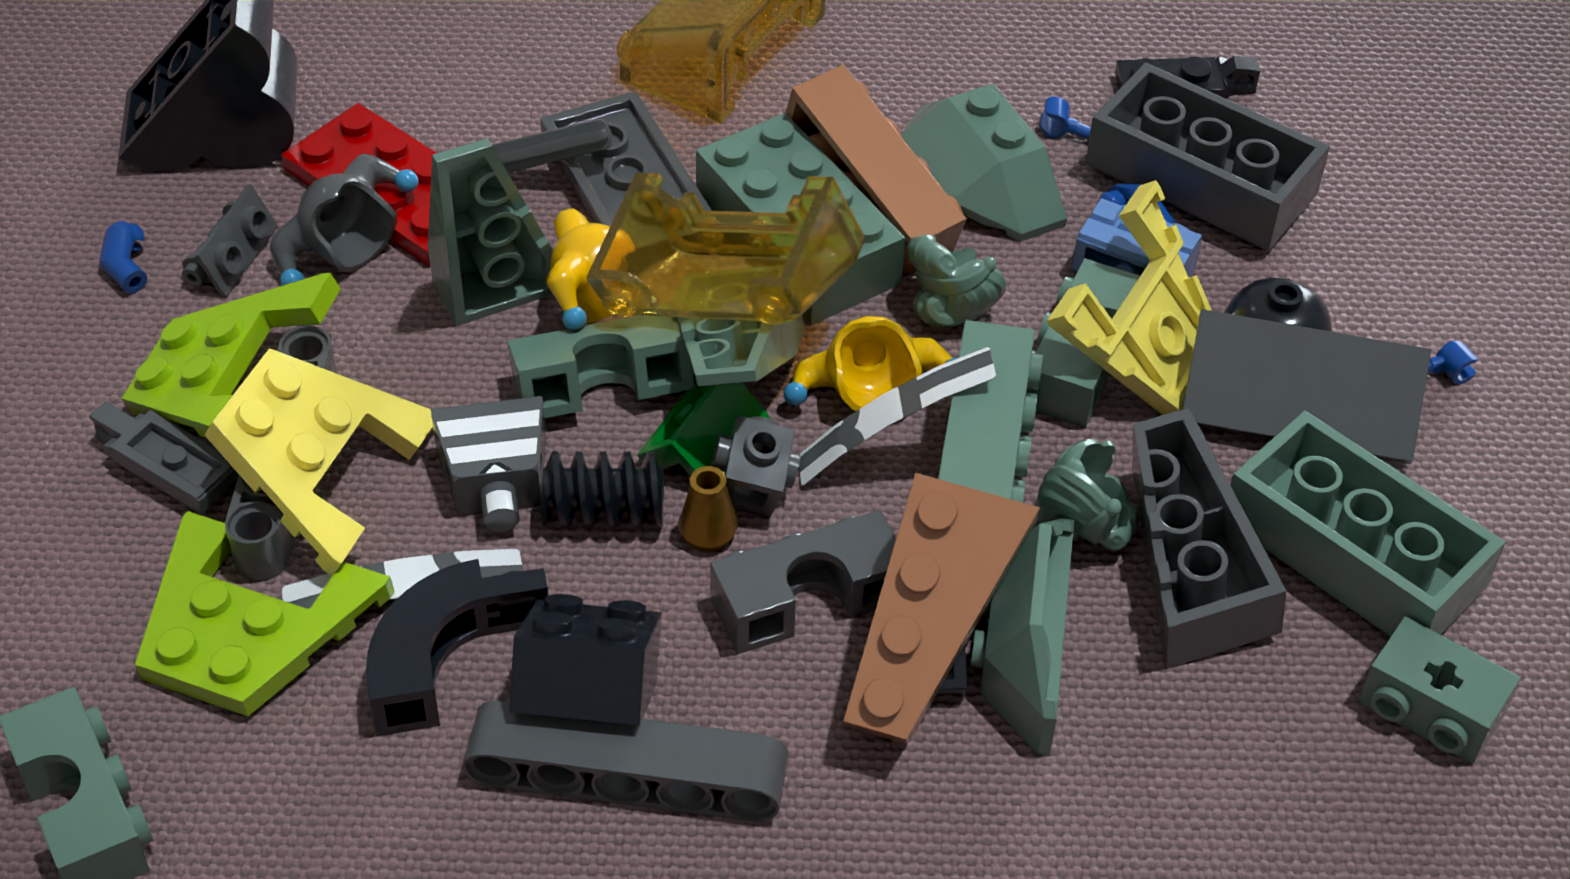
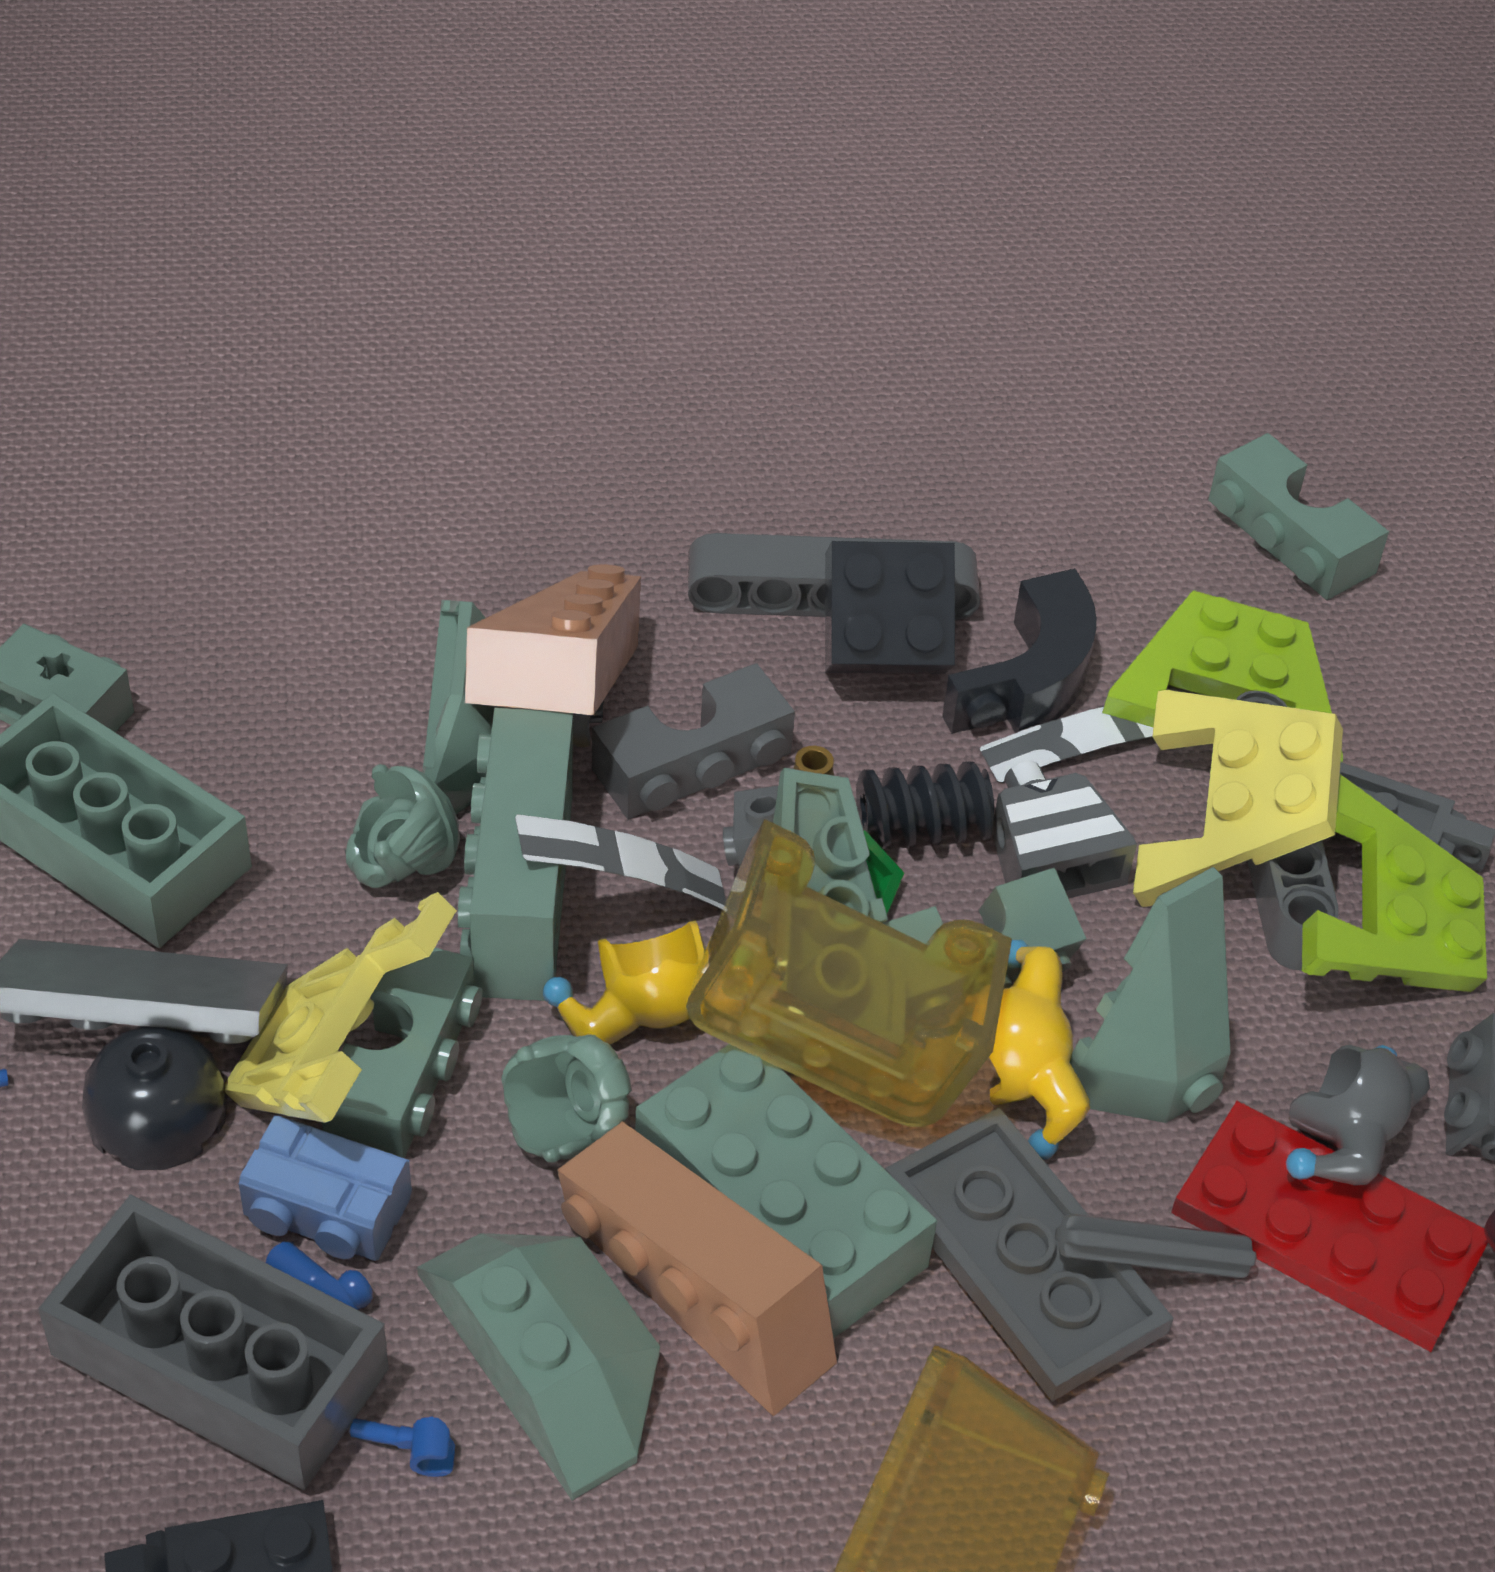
camera: 170 degrees right, 0 degrees up
(1201, 550) = (284, 774): dark grey wedge -> none

